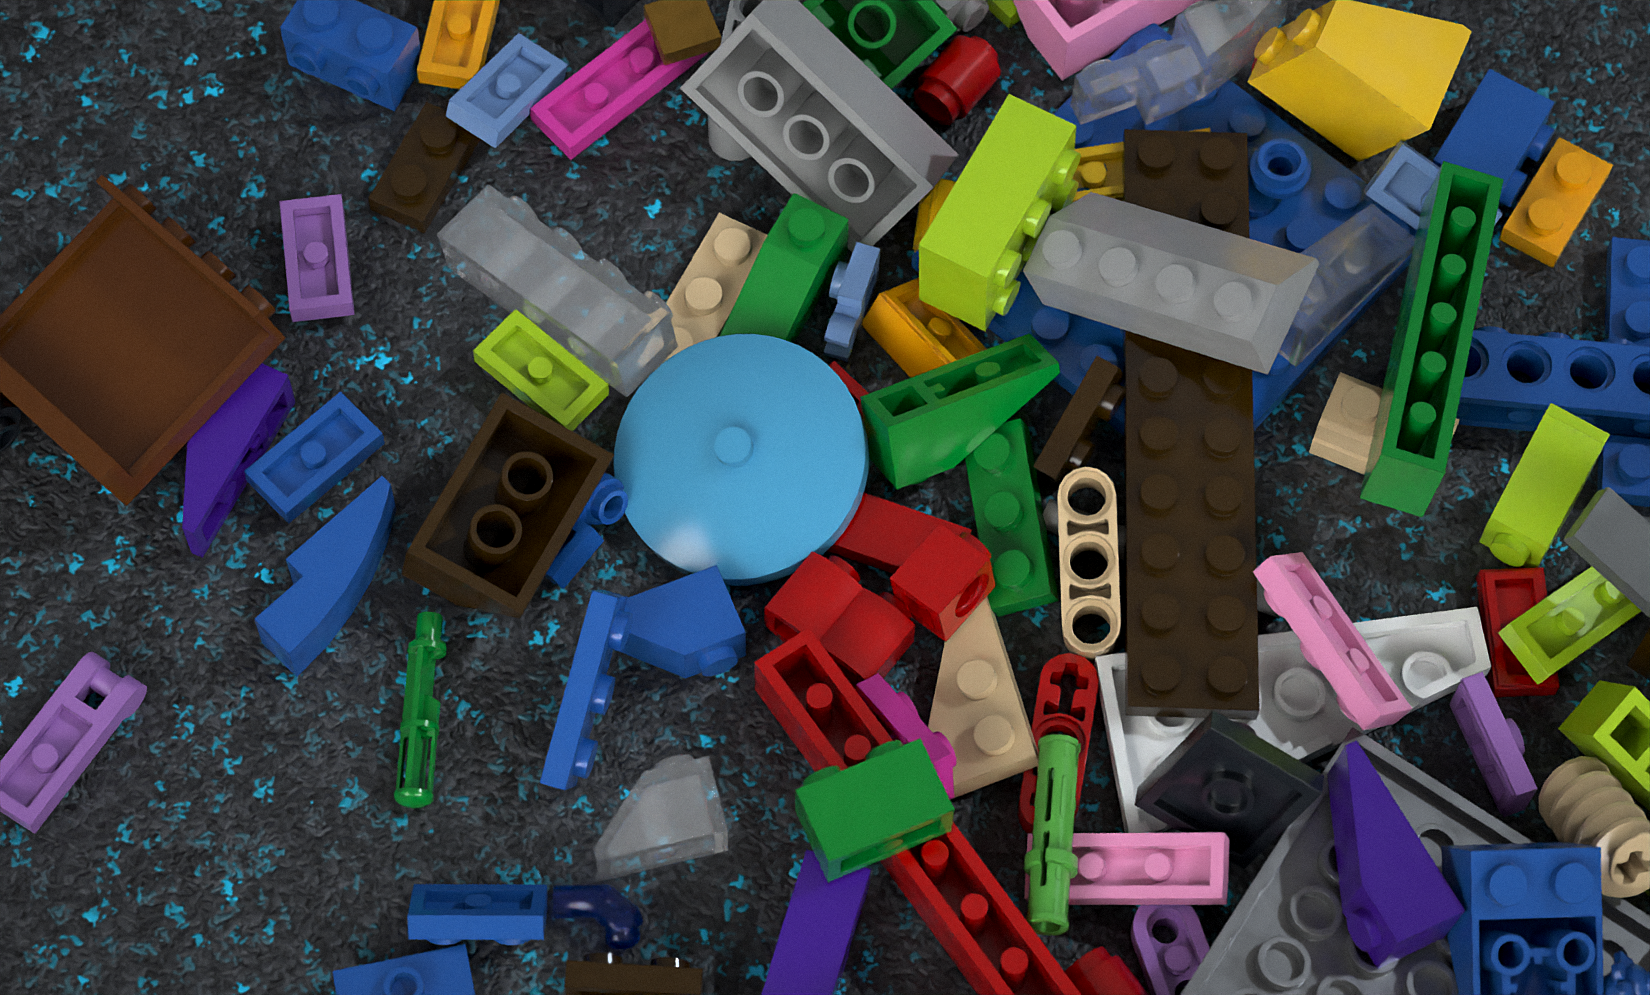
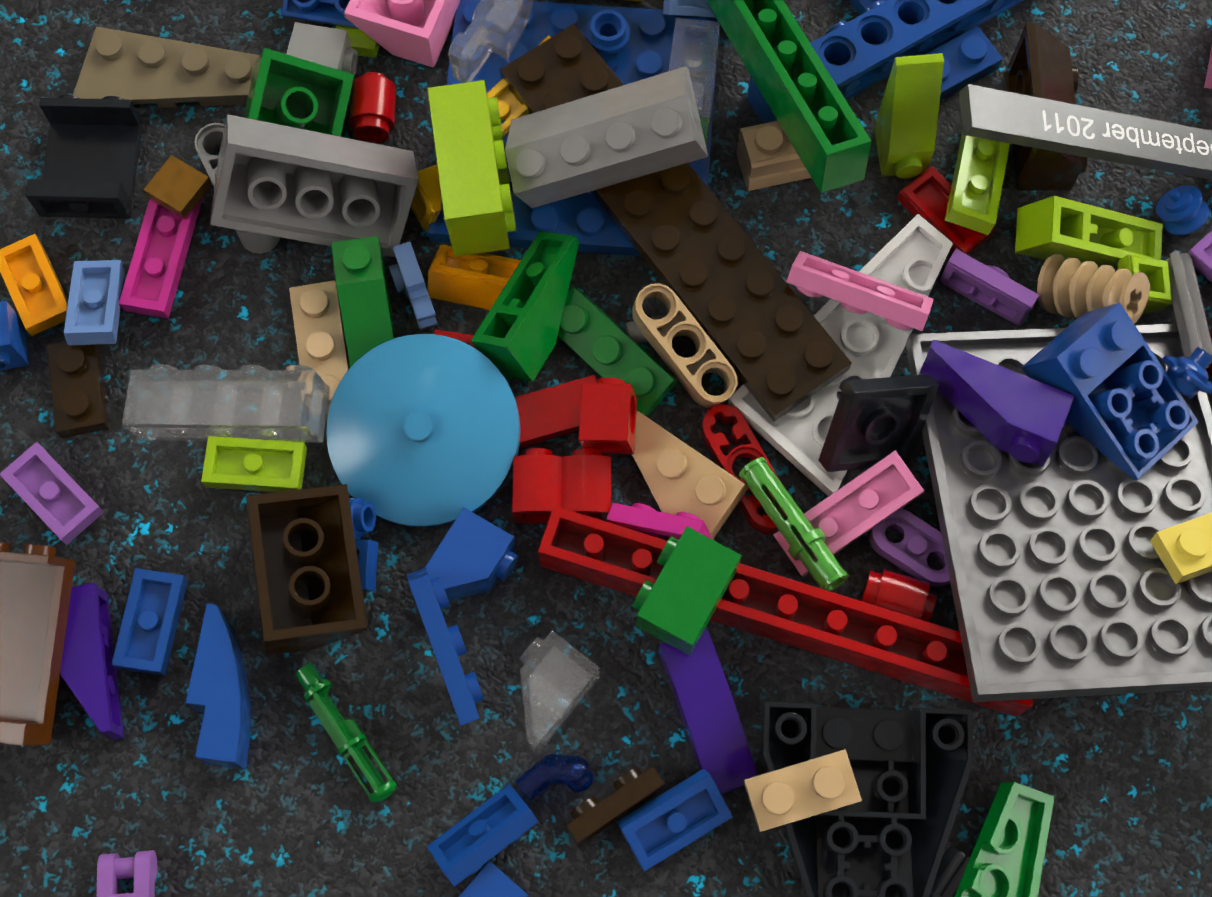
camera: 35 degrees left, 5 degrees up
(1095, 399) = (612, 242): dark brown plate -> none

